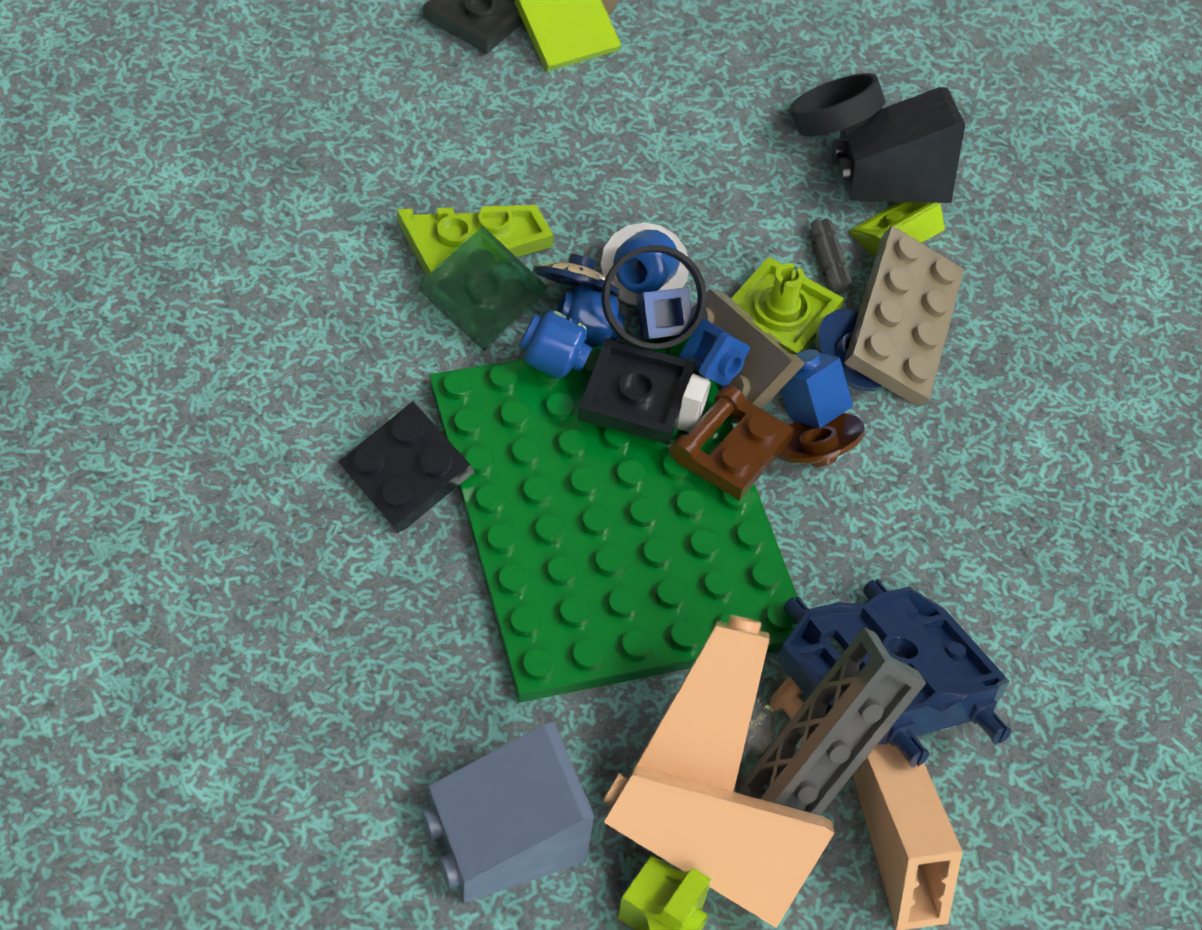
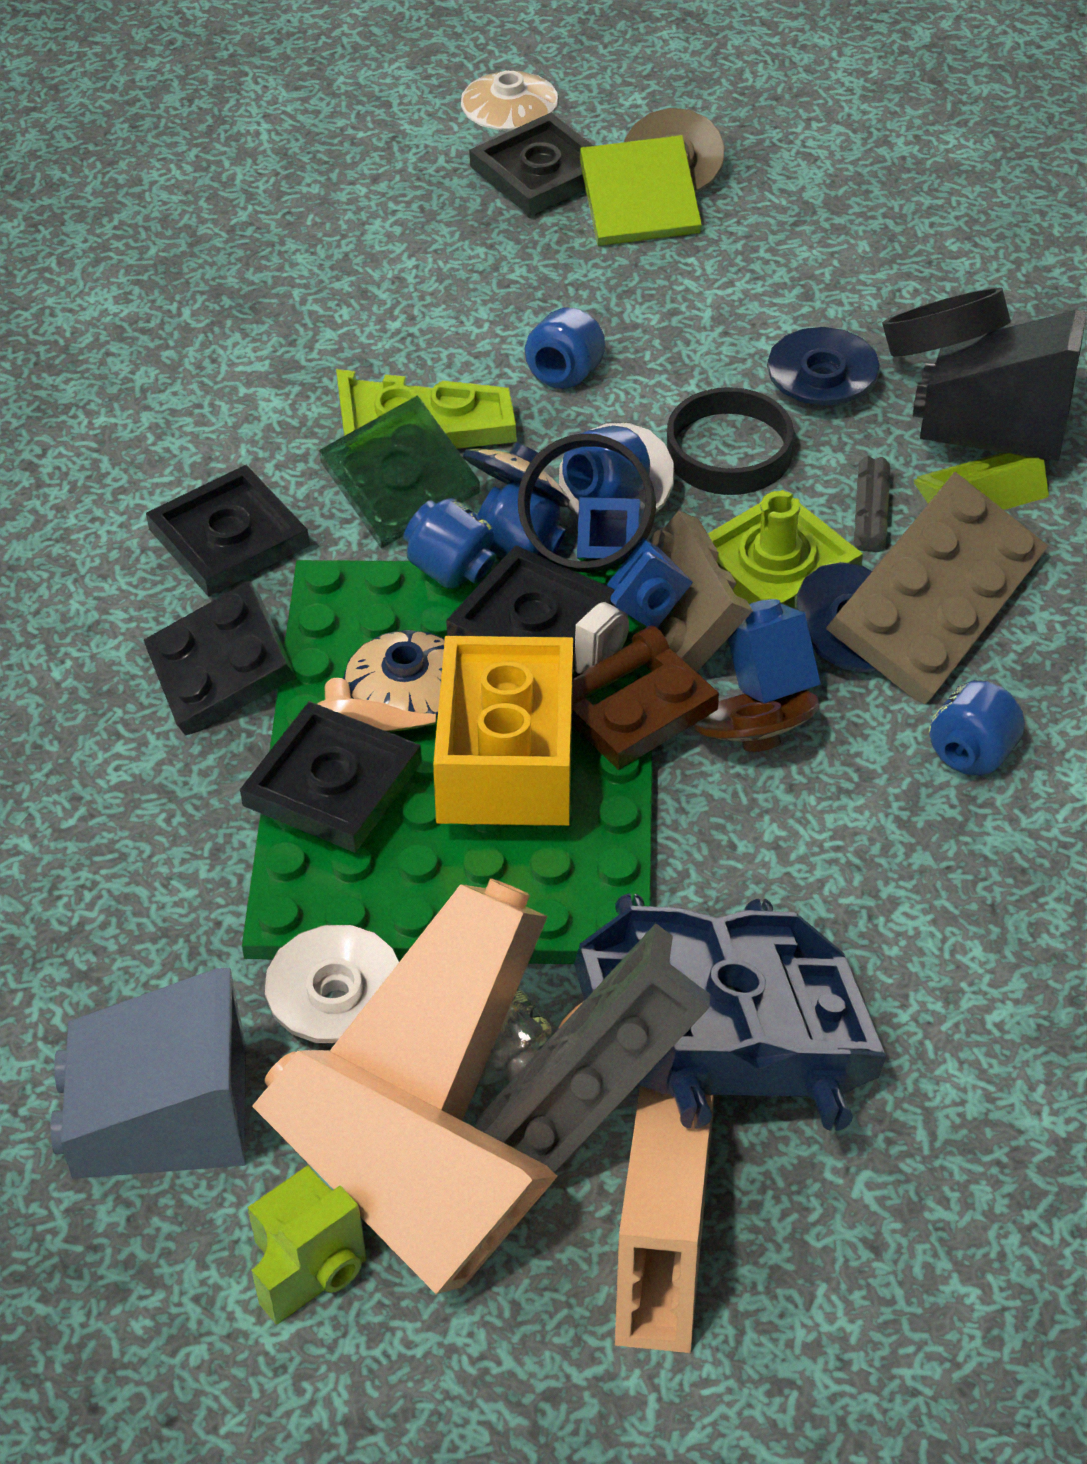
camera: 25 degrees right, 5 degrees down
(365, 358) = (227, 530): none -> black plate
(541, 548) = (331, 776): none -> black plate
(542, 494) = (372, 712): none -> light nougat bar
(556, 471) = (399, 671): none -> tan dish
(563, 164) = (565, 348): none -> blue head
(606, 690) = (321, 963): none -> white dish
(663, 489) = (504, 731): none -> yellow slope
(718, 190) = (730, 401): none -> black tyre
(757, 151) = (823, 366): none -> dark blue dish
(972, 416) = (979, 725): none -> blue head

